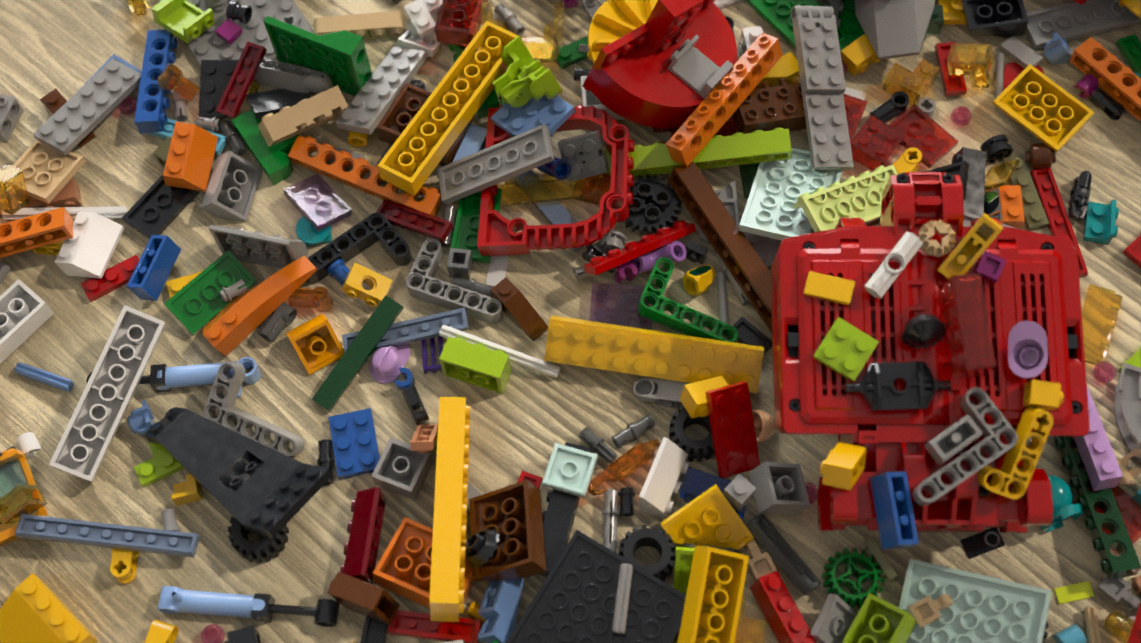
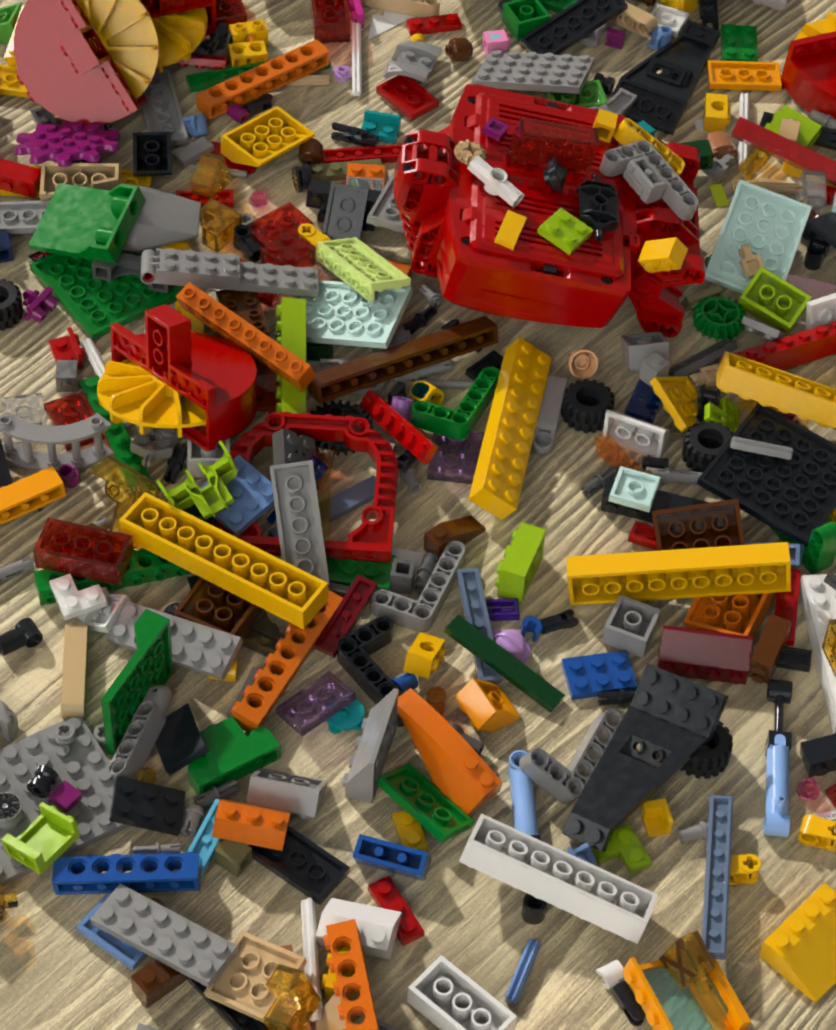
camera: 95 degrees left, 15 degrees down
(172, 79) = (141, 838): clear orange piece -> none
(232, 291) = (430, 779): light grey pin -> none
(241, 80) = (150, 768): dark red plate -> none
(302, 116) = (214, 698): tan wedge -> none
(424, 438) = (602, 599): nougat plate -> none
(481, 547) = (721, 535): black piece -> none
(514, 356) = (490, 572): white axle -> none
(633, 431) = (585, 454): dark grey pin -> none
(694, 396) = (564, 382): yellow brick -> none
(696, 68) = (219, 346): light grey panel -> none
(733, 429) = (593, 369): red plate -> none
(894, 510) = (699, 235): blue brick -> none
(971, 247) = (478, 127): yellow slope -> none
(1000, 174) = (333, 172): clear yellow piece -> none
(1027, 349) = (571, 114): lavender piece -> none

